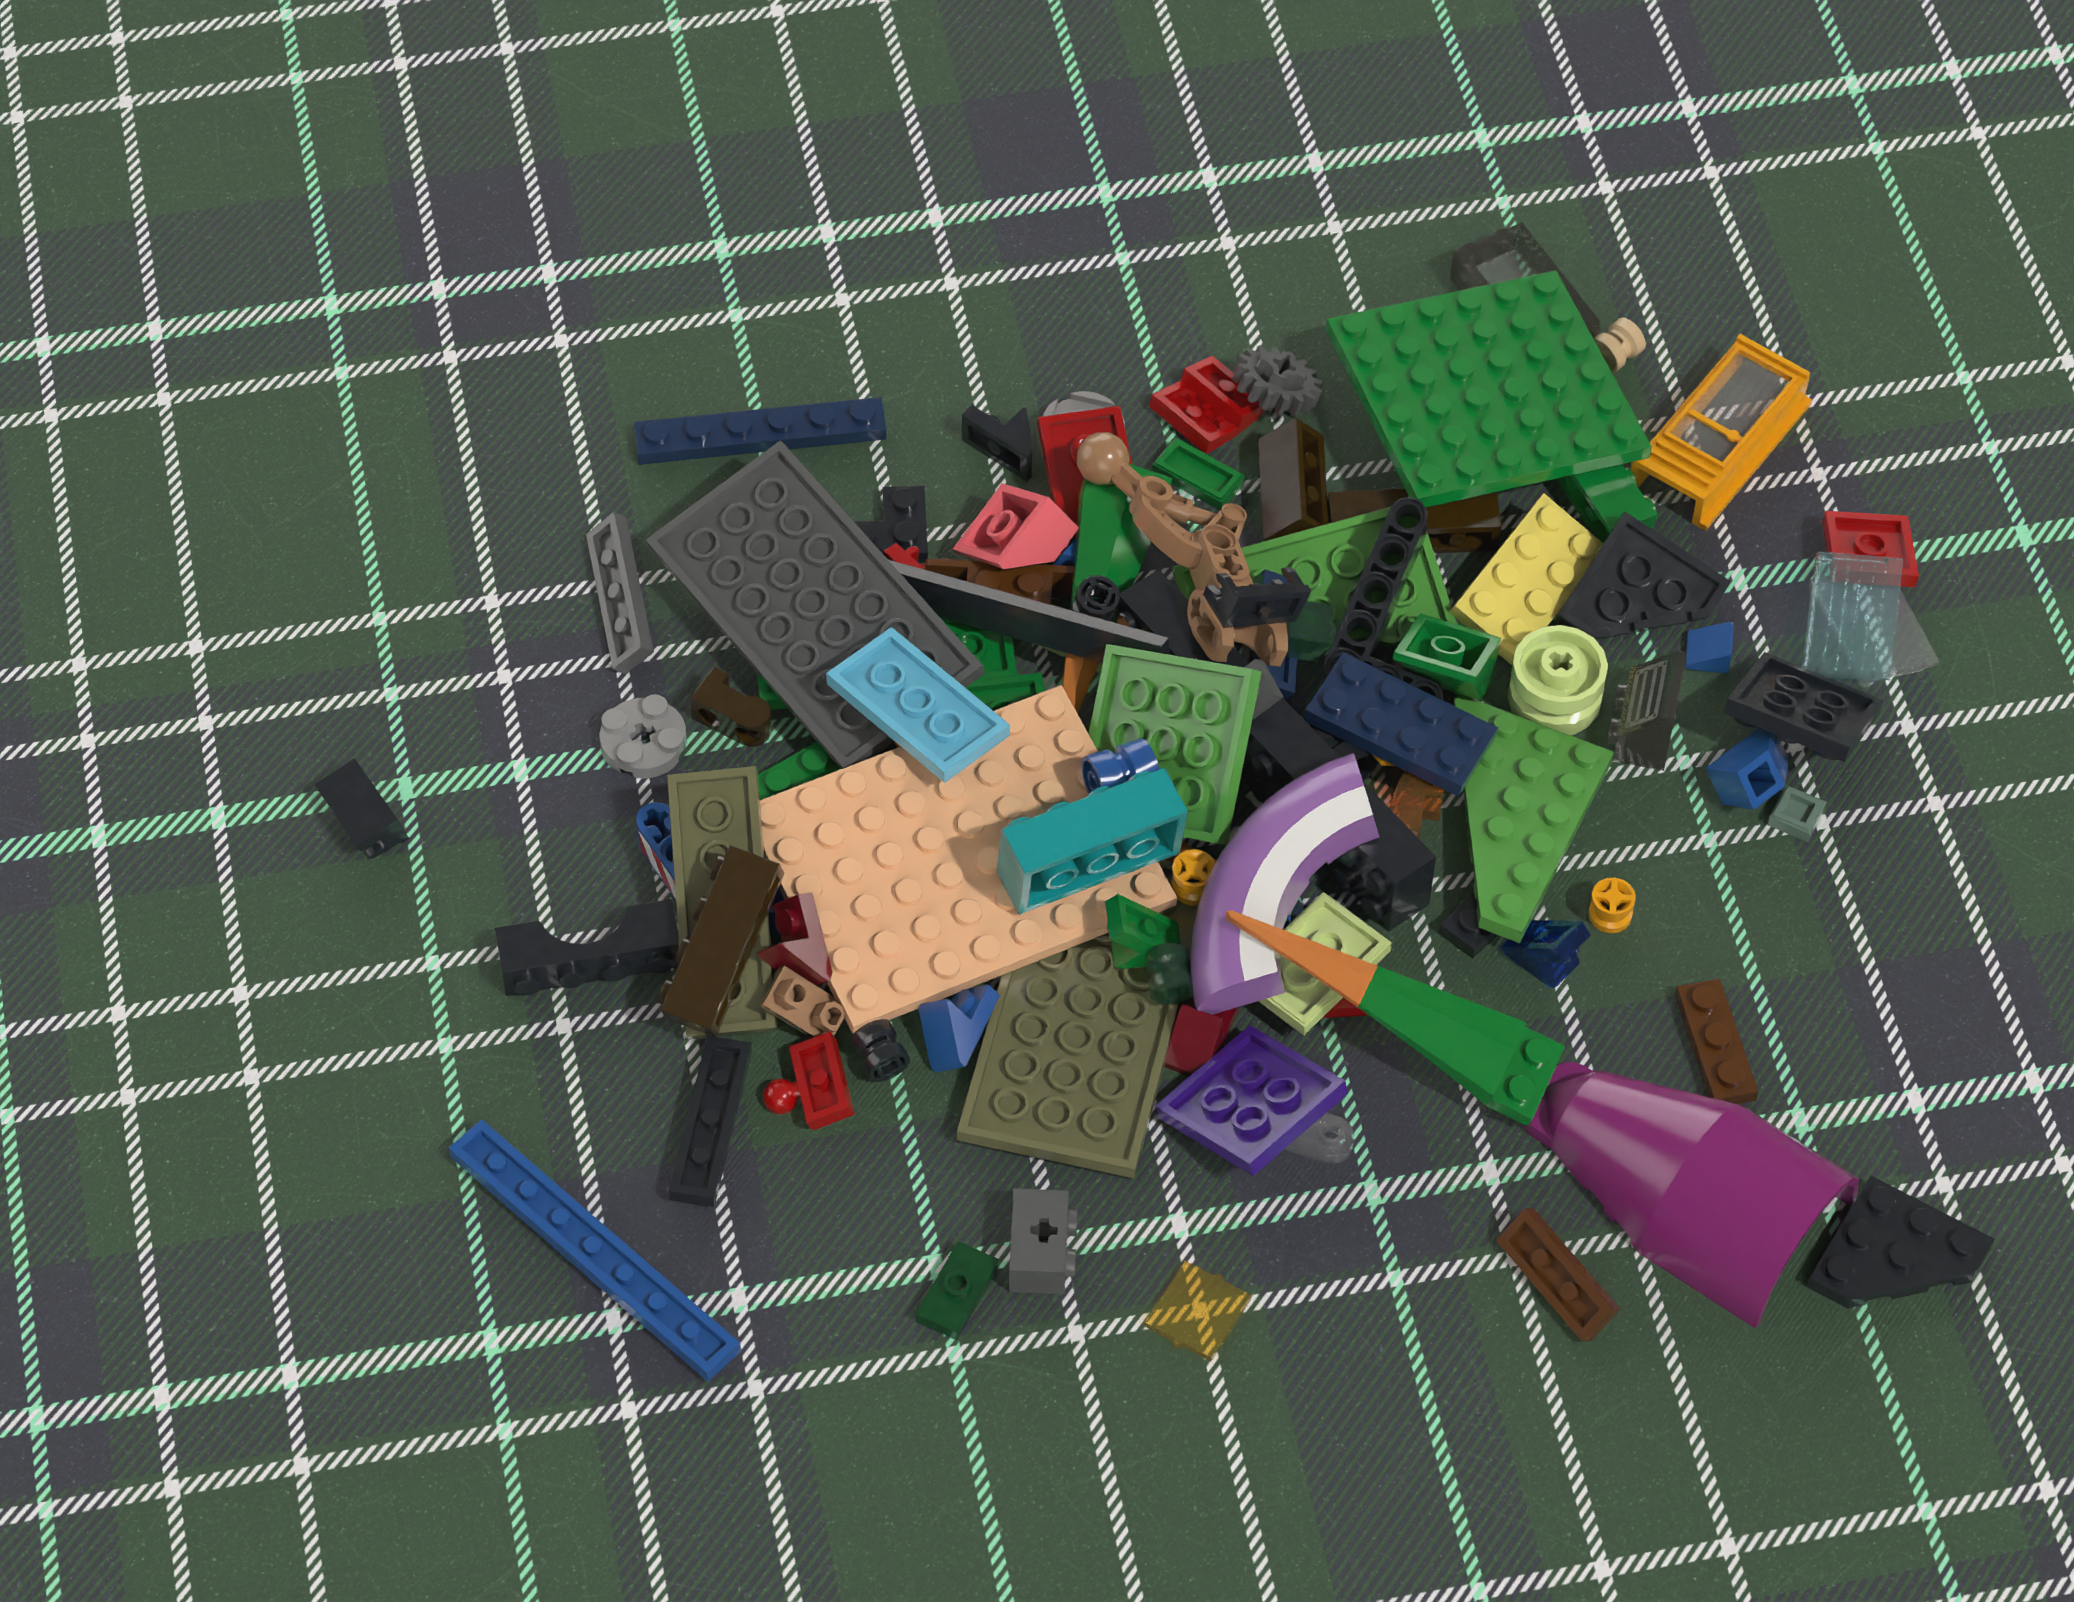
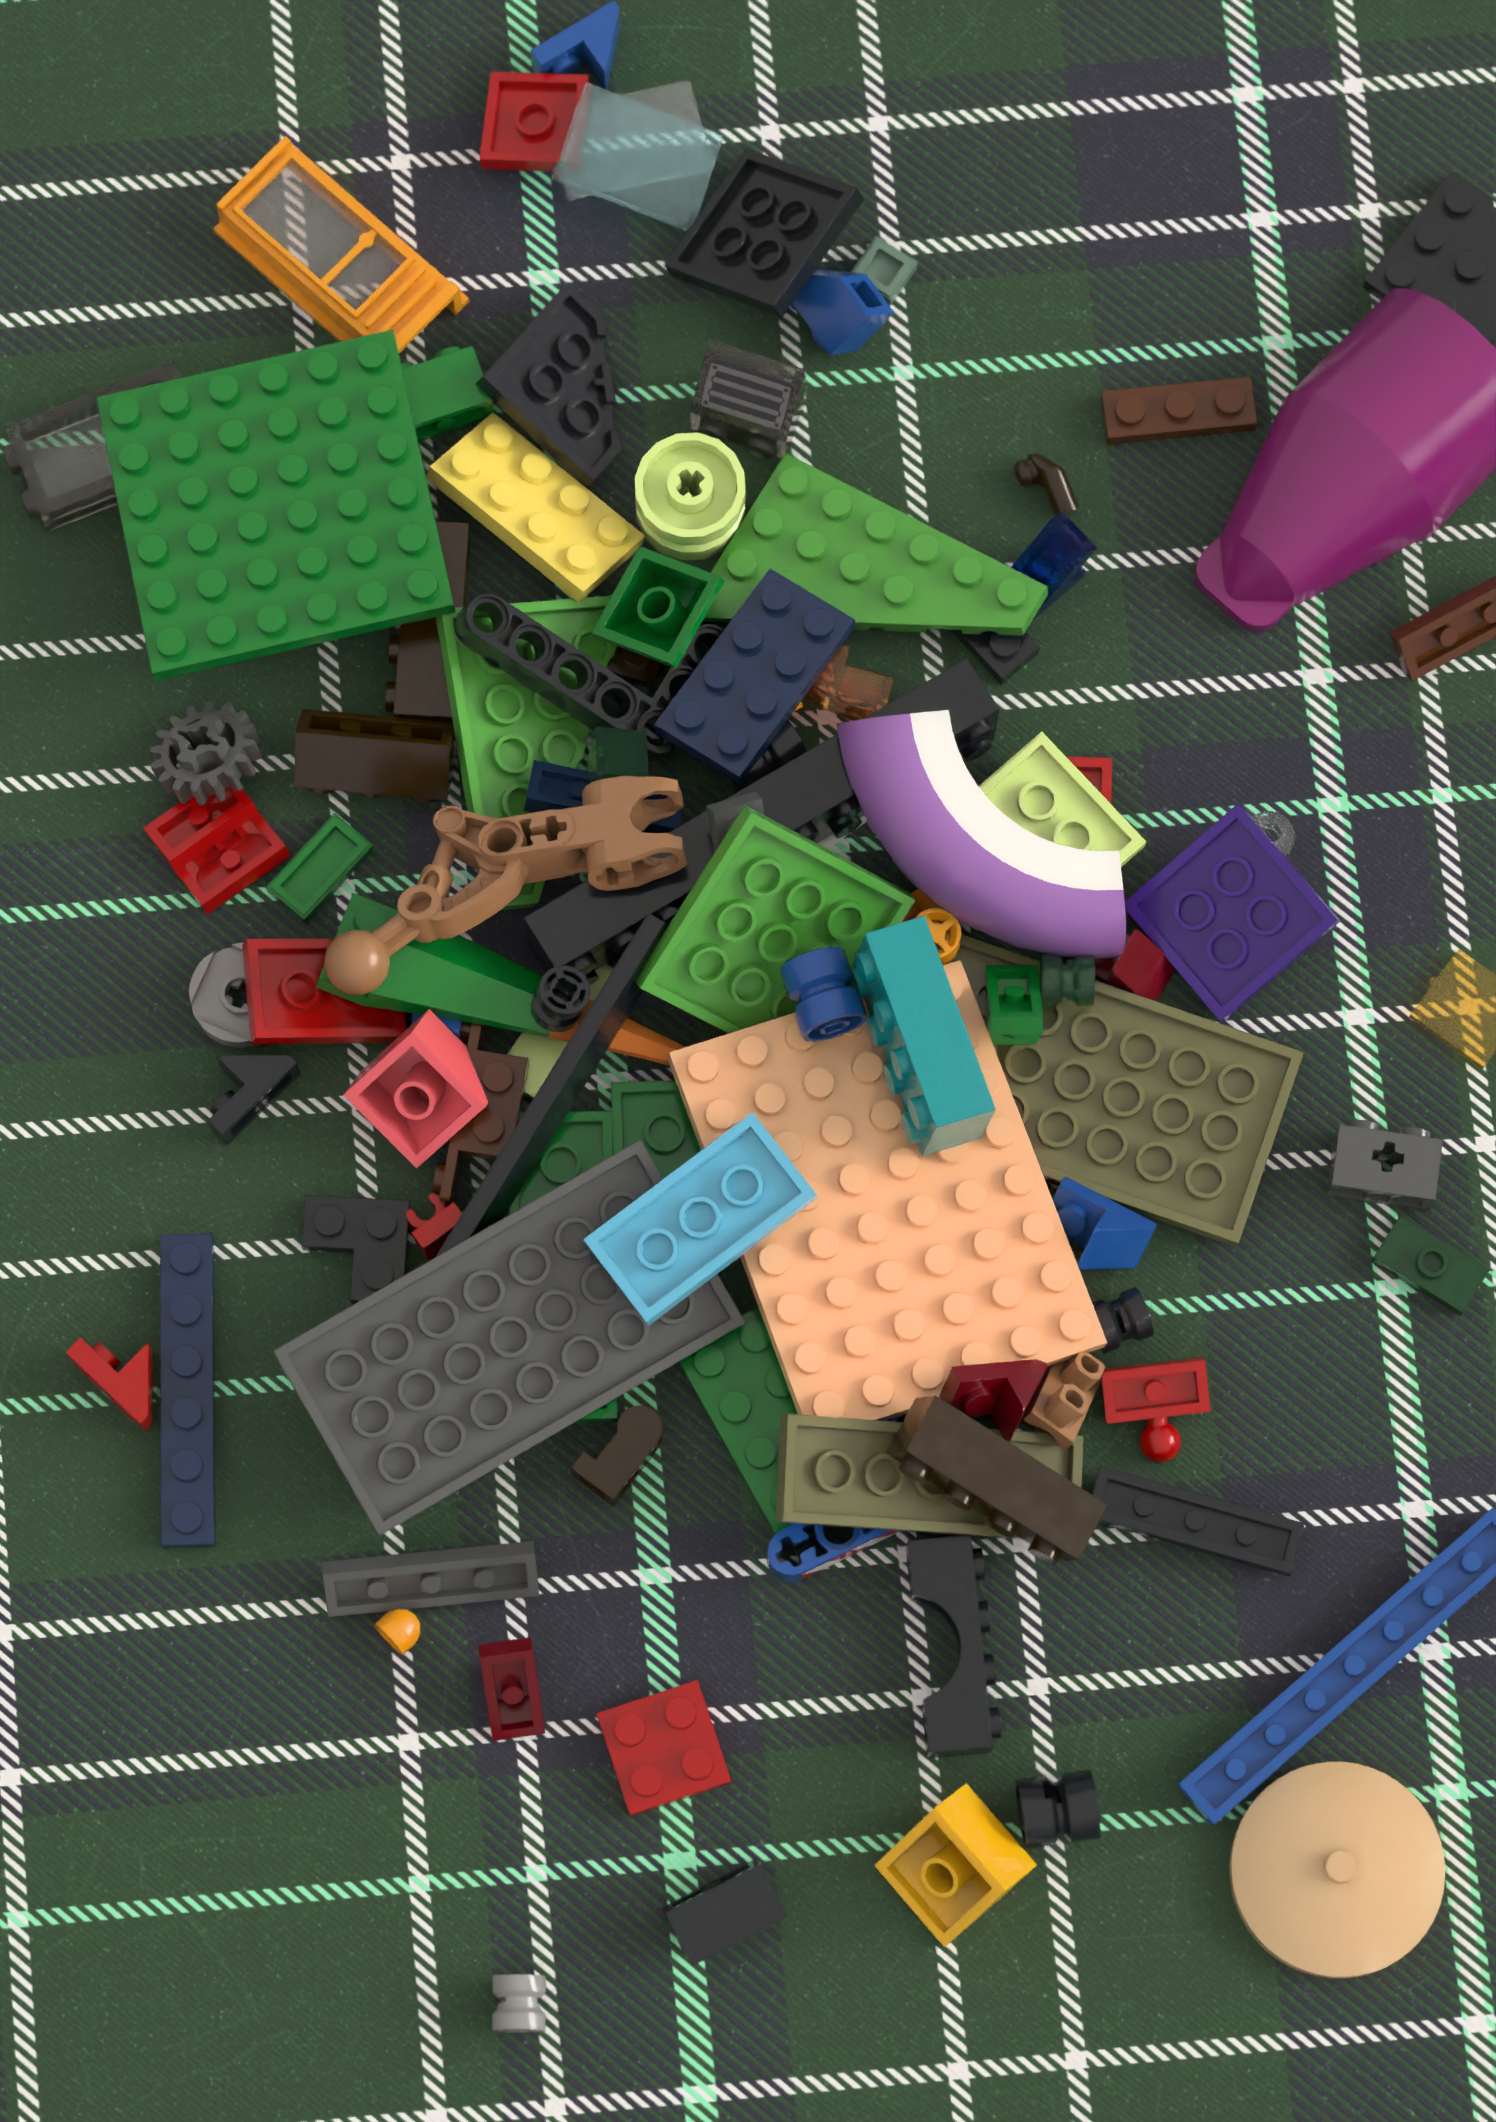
camera: 85 degrees left, 20 degrees up
(283, 680) = (519, 2004): none -> light grey wheel
(409, 967) = (955, 1864): none -> yellow slope
(417, 1253) = (1337, 1870): none -> tan dish
(455, 1031) = (1057, 1809): none -> black wheel
(494, 765) = (663, 1748): none -> red plate
(535, 651) = (511, 1688): none -> dark red slope
(577, 578) = (399, 1629): none -> light orange hinge
(638, 716) = (669, 1580): light grey plate -> none
(761, 380) = (129, 1388): none -> red slope
(1257, 602) = (617, 800): black hinge -> none
(1471, 1043) = (1195, 660): green plate -> none
(1620, 342) = (193, 349): tan wheel -> none
(1621, 901) = (996, 477): light orange wheel -> none
(1634, 941) = (1051, 477): none -> dark brown arm
(1710, 648) = (648, 323): blue slope -> none
(1949, 580) = (587, 41): none -> blue slope

